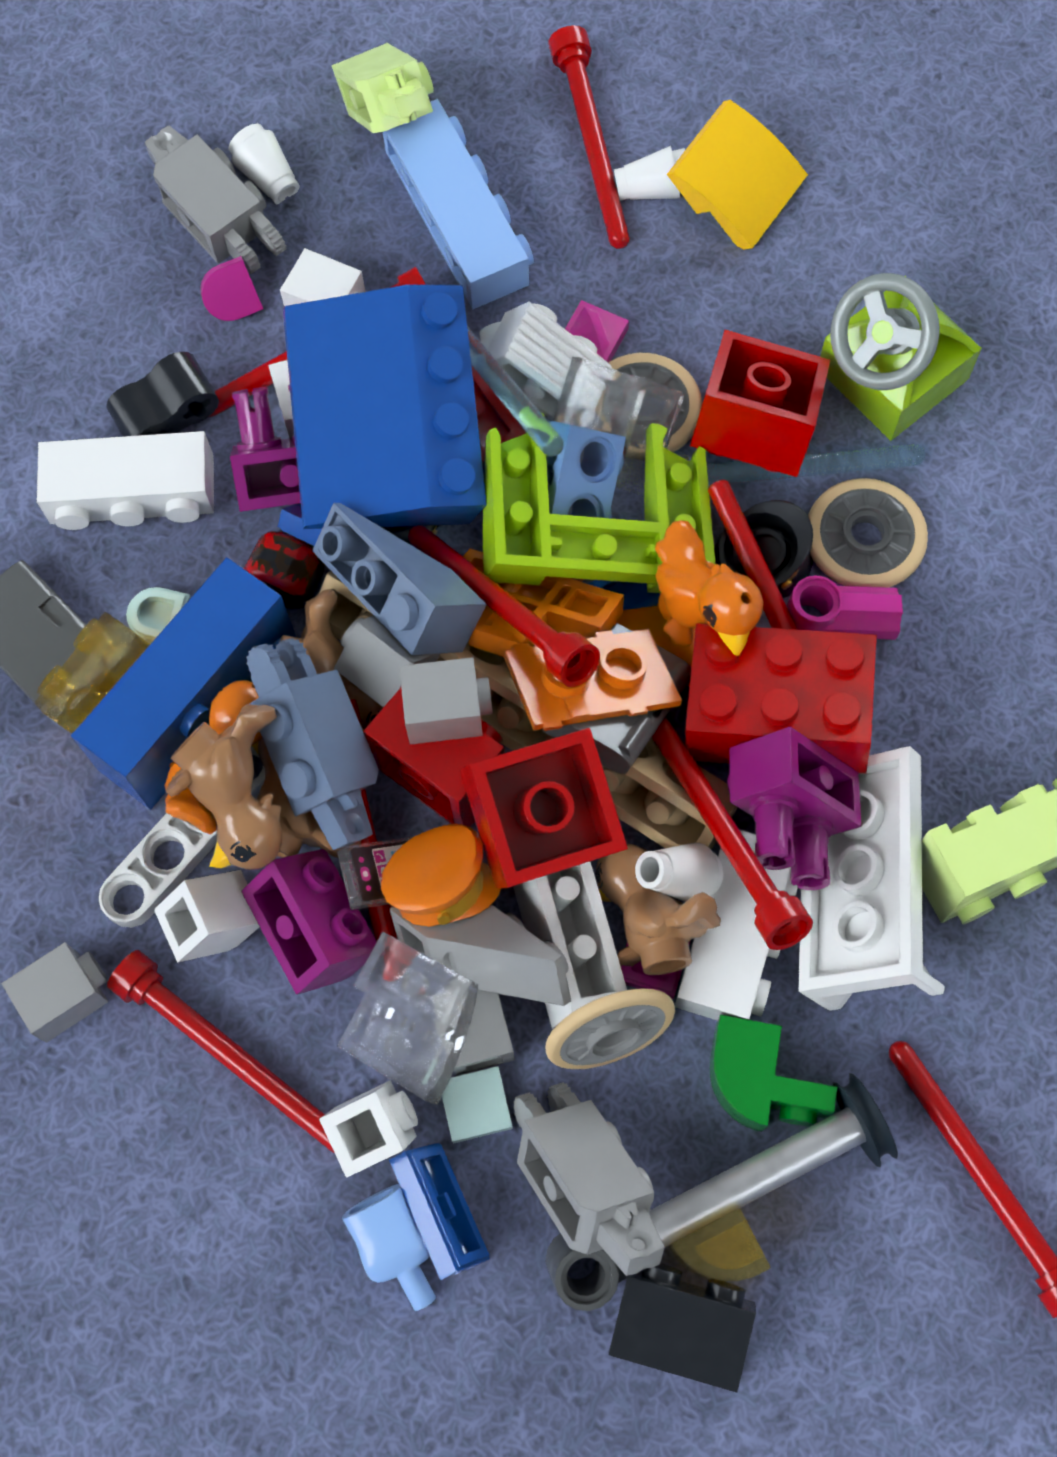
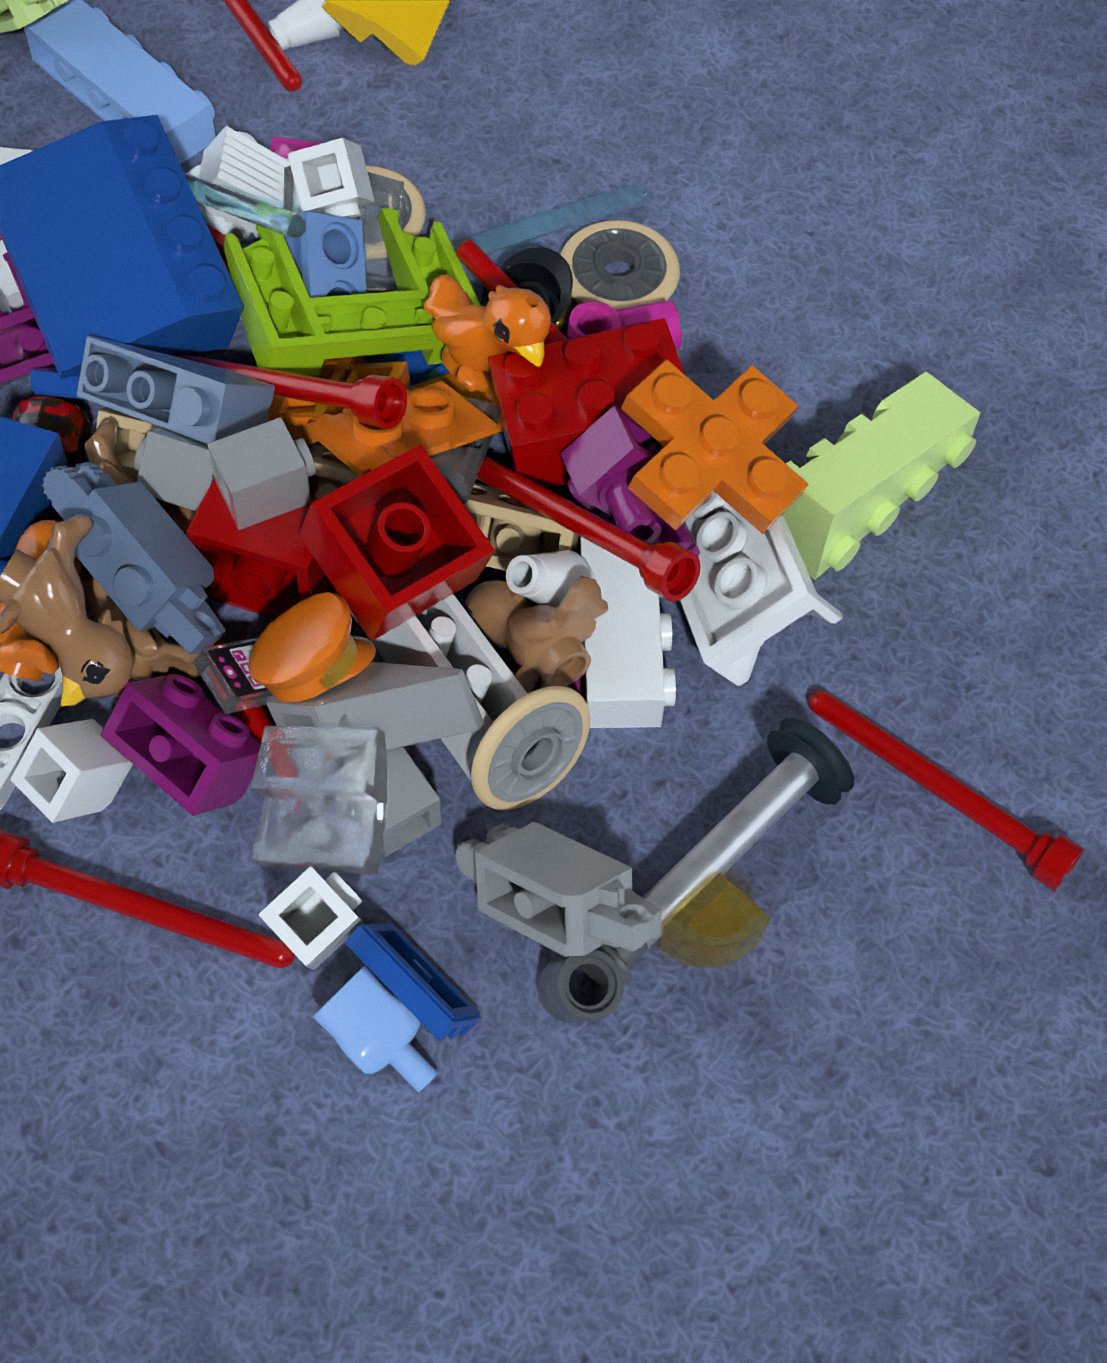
camera: 25 degrees left, 10 degrees down
(476, 1105) = (416, 875): light aqua tile -> none
(608, 392) = (332, 178): none -> white brick
(684, 1326) = (704, 1004): black brick -> none
(746, 1082) = (688, 769): green brick -> none
(761, 403) = (481, 174): red brick -> none
(873, 796) = (713, 447): none -> orange plate
(895, 352) = (594, 103): piece -> none

